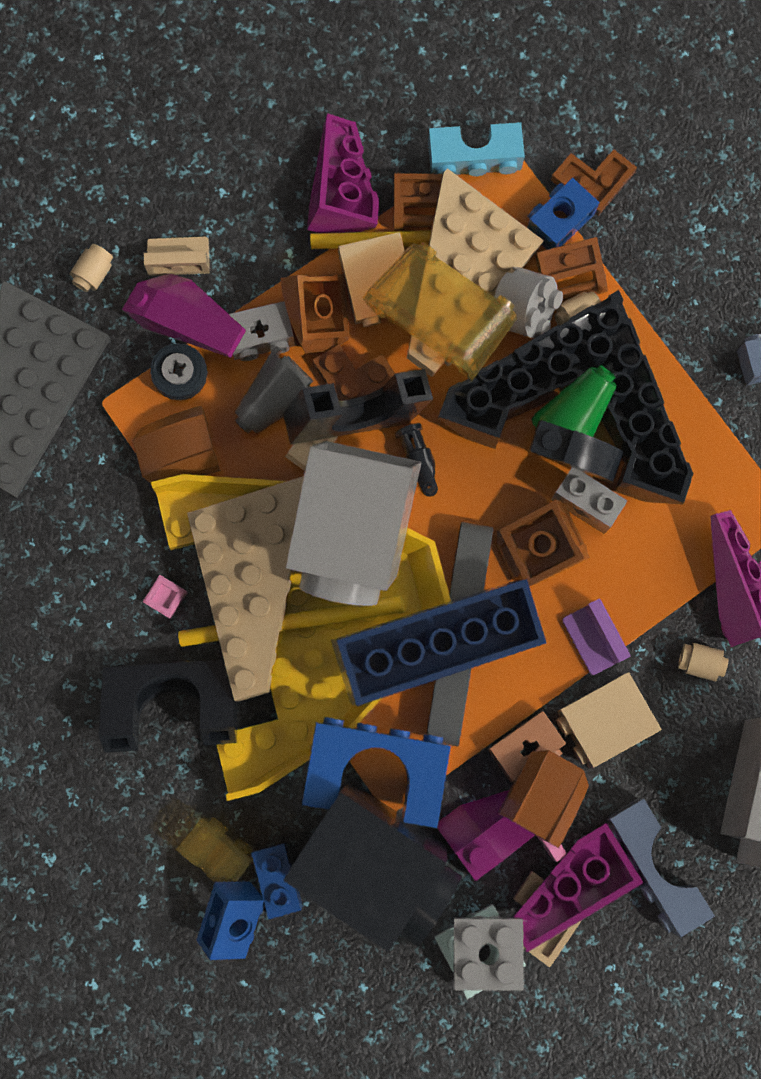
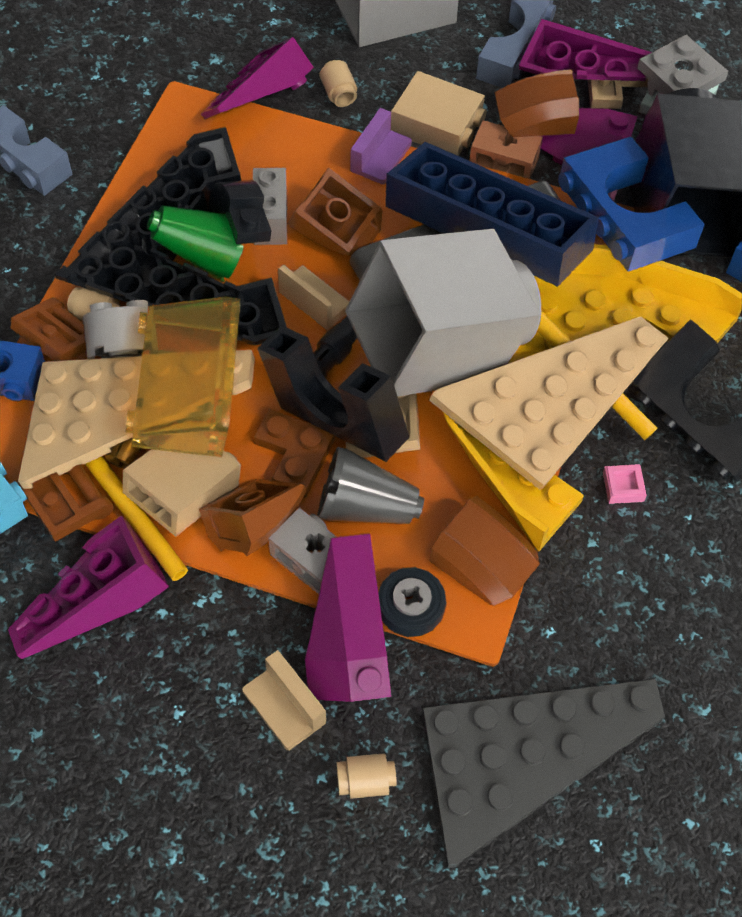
camera: 125 degrees left, 20 degrees down
(480, 479) = (312, 295): none -> tan panel

